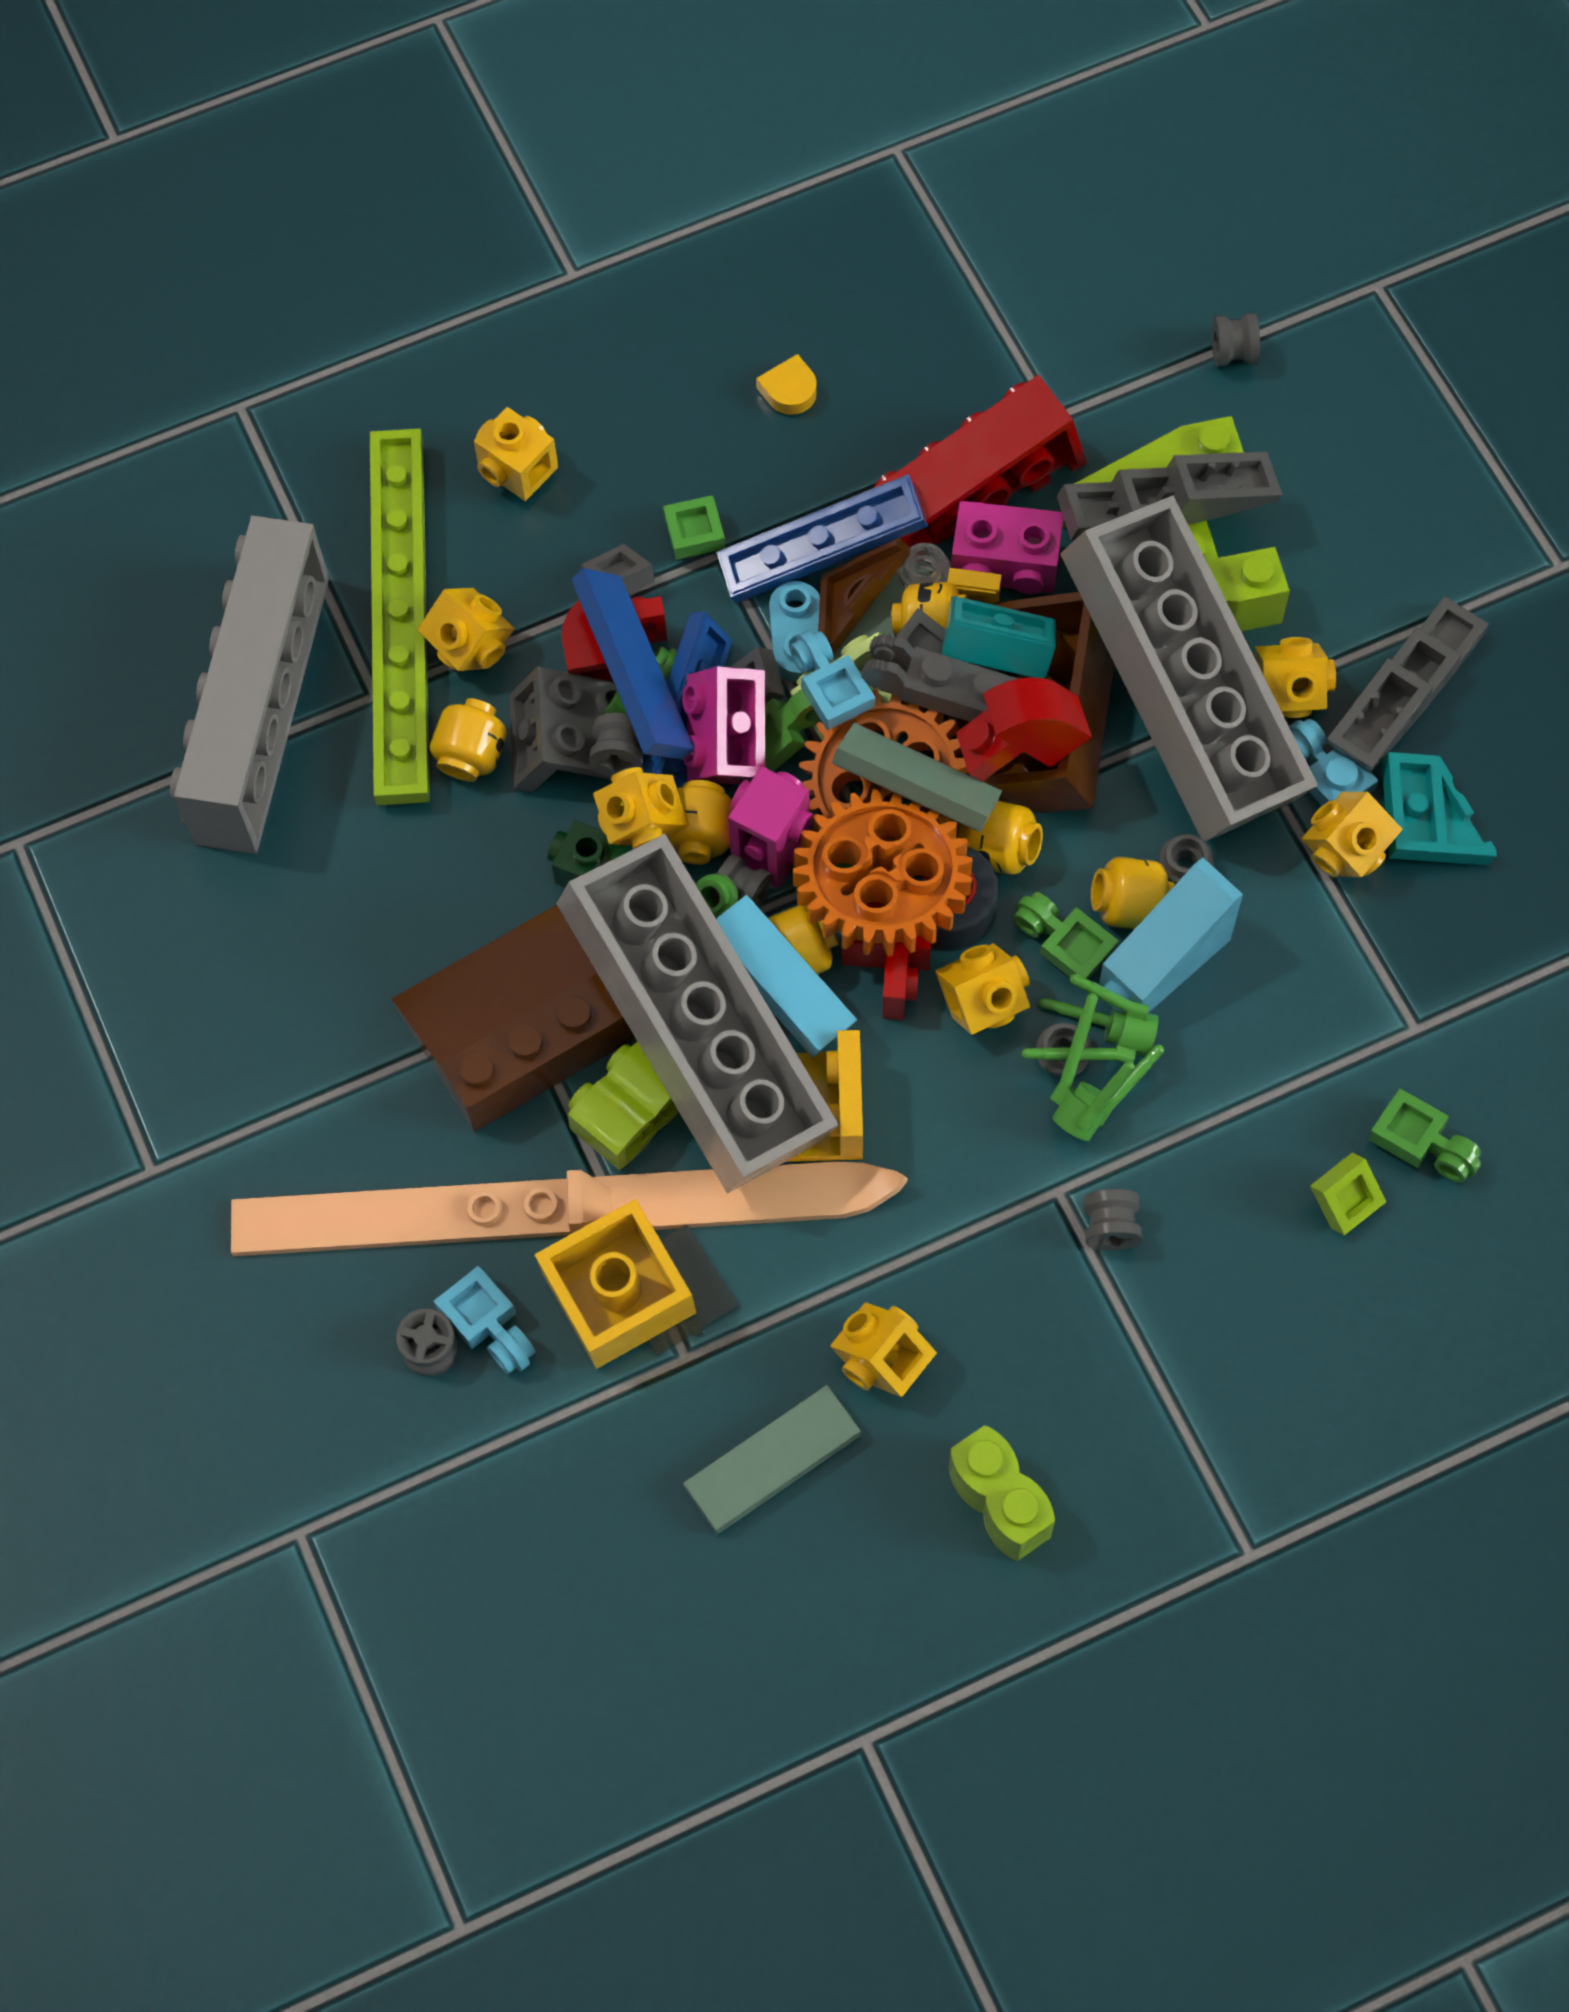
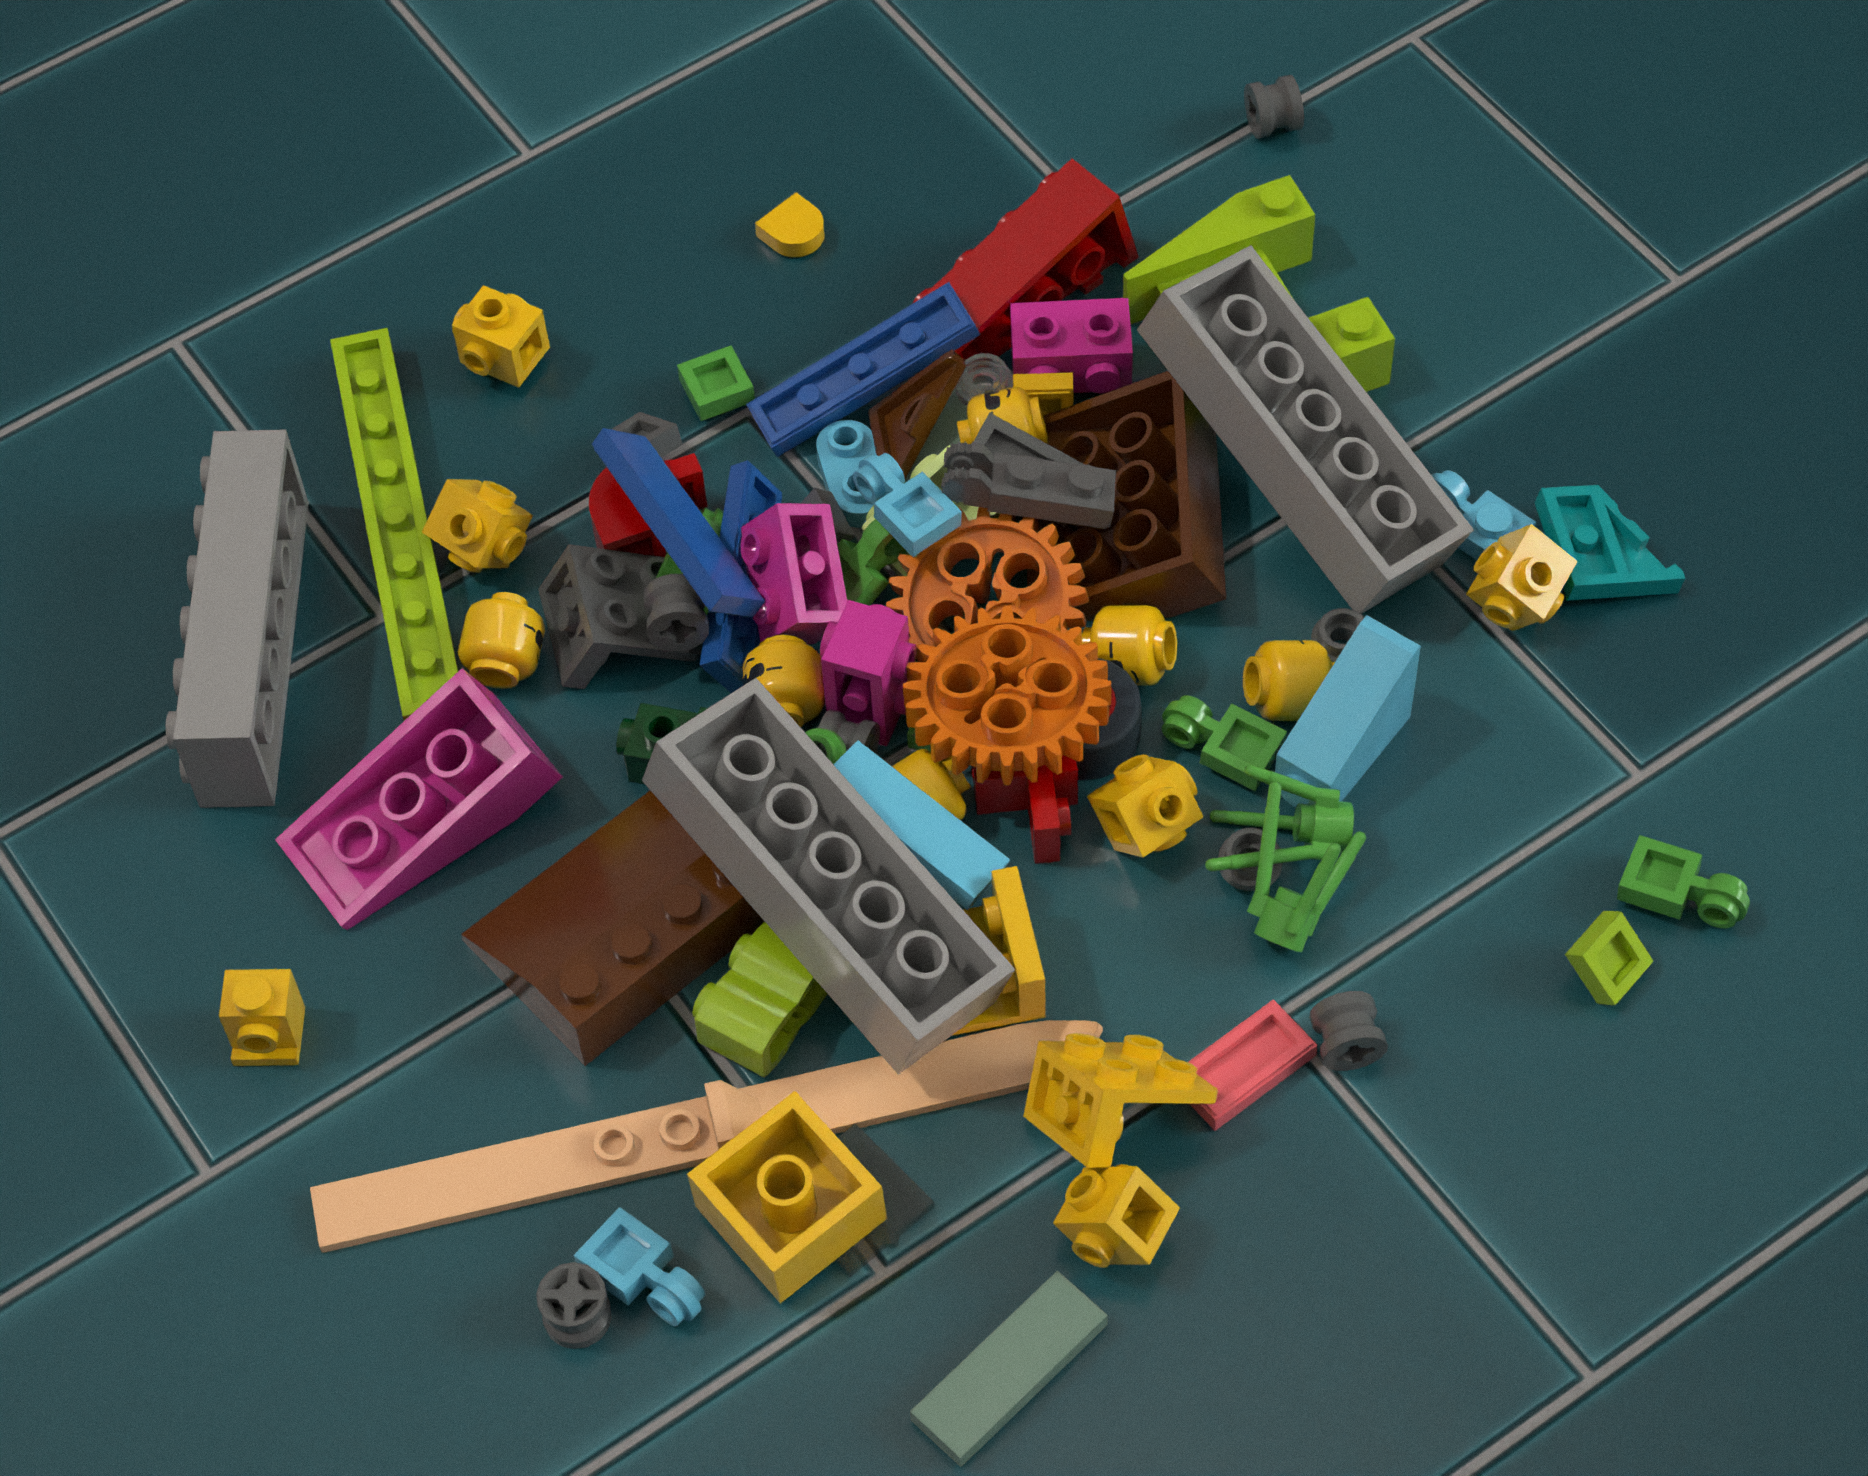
camera: 10 degrees left, 10 degrees down
(215, 1046) = (262, 1016): none -> yellow brick
(375, 874) = (418, 801): none -> dark pink slope
(639, 807) = (712, 665): yellow brick -> none
(886, 1227) = (1084, 1082): none -> yellow bracket
(916, 777) = (1025, 587): sand green tile -> none
(990, 1482) = (1301, 1361): lime brick -> none
(999, 637) = (1086, 431): teal slope -> none
(1019, 718) = (1134, 501): red brick -> none
(1020, 1231) = (1251, 1061): none -> coral tile
(1201, 484) = (1288, 241): dark grey slope -> none
(1297, 675) = (1427, 423): yellow brick -> none
(1407, 684) = (1544, 419): dark grey slope -> none

